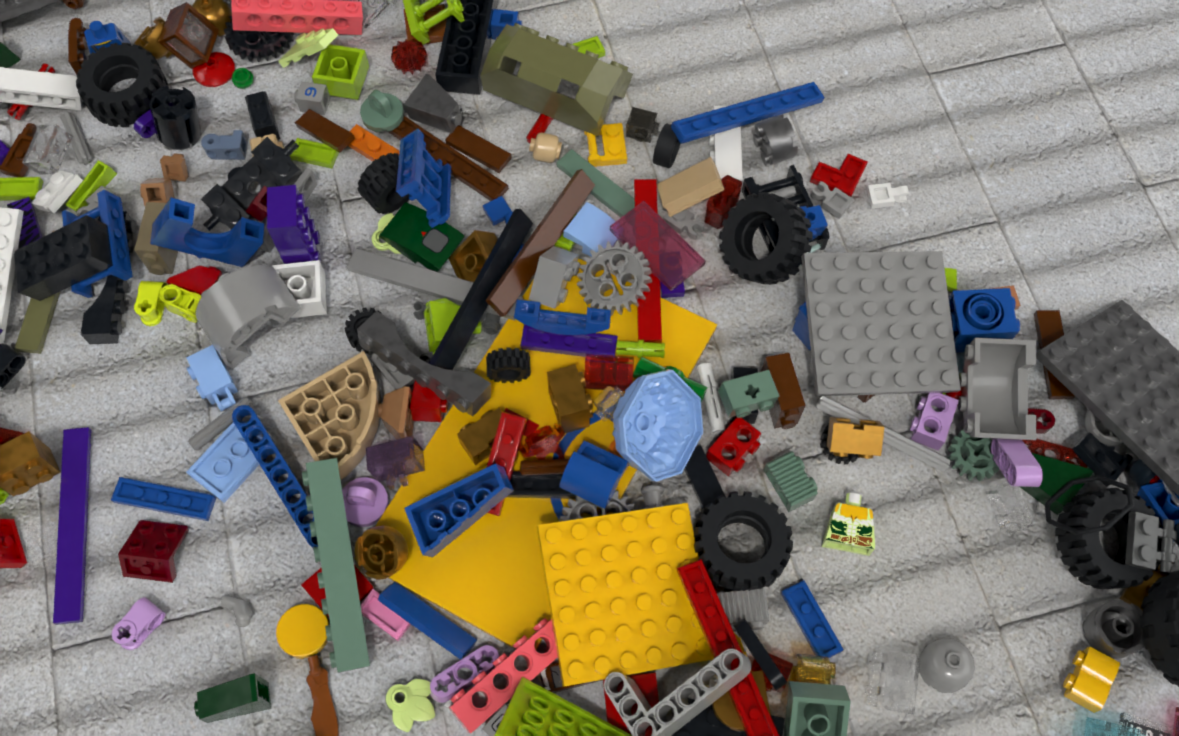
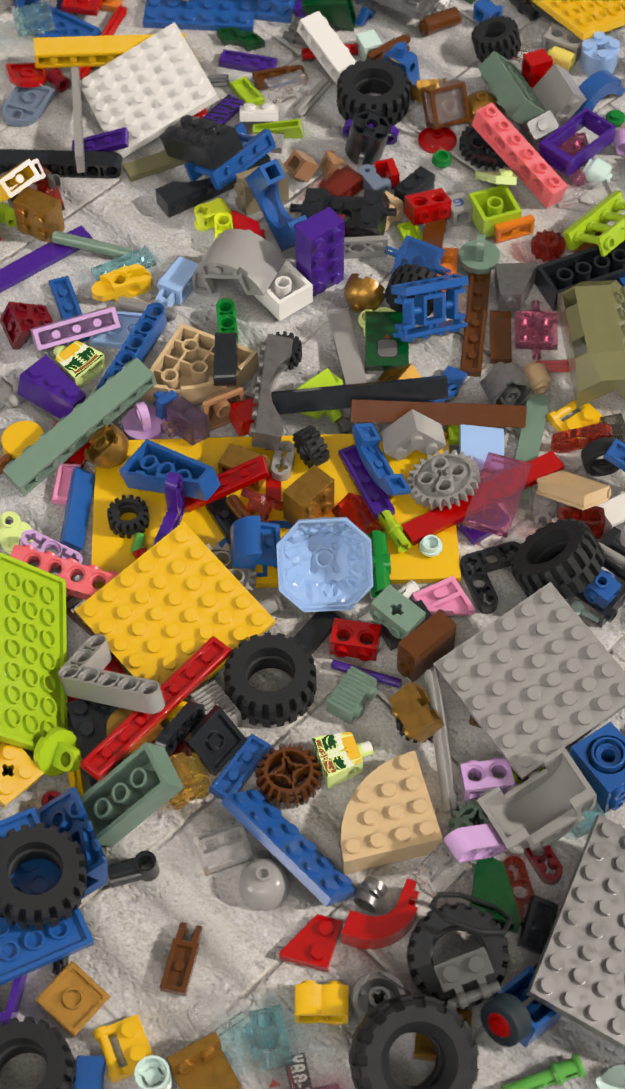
camera: 60 degrees right, 10 degrees down
(12, 36) = (364, 14): none -> blue tile
(54, 54) = (367, 42): none -> light aqua brick
(99, 433) = (89, 244): none -> sand green axle
(150, 418) = (139, 256): none -> clear light blue plate
(169, 449) = (125, 282): none -> yellow piece
(204, 505) = (75, 328): none -> lavender brick
(207, 171) = (343, 182): none -> clear red brick
(224, 124) = (388, 169): none -> red bracket
(243, 526) = (79, 362): none -> torso
(264, 569) = (50, 388): none -> dark purple wedge
(295, 118) = (427, 206): none -> red brick
(297, 355) = (226, 316): none -> green beam
(349, 160) = (418, 252): none -> blue plate
(356, 226) = (363, 293): none -> pearl gold cylinder
(358, 383) = (225, 359): none -> black beam
(358, 468) = (161, 400): none -> blue tile
(370, 69) = (514, 228): none -> orange tile
(473, 590) = (128, 505): none -> black tyre
(493, 118) = (536, 330): none -> clear pink plate
(496, 521) = (175, 505): none -> dark purple beam
(503, 395) = (287, 461): none -> light grey beam
(518, 587) = (137, 545): none -> bright green arm
(545, 172) = (506, 384): none -> flat silver brick
(637, 149) = (568, 440): none -> clear red beam
(674, 328) = (431, 546): none -> light aqua plate
(713, 302) = (481, 568): none -> black beam
(731, 349) = (447, 597): none -> bright pink wing
(771, 455) = (381, 678): none -> dark purple bar
(781, 628) = (215, 740): none -> black tile
(857, 584) = (305, 767): none -> reddish brown gear
(926, 621) = (290, 846): none -> blue plate
(934, 520) = (389, 817): none -> tan brick
(1001, 577) = (370, 894): none -> flat silver wheel
(1024, 652) = (314, 943): none -> red wing
(1041, 577) = (384, 930): none -> red arch

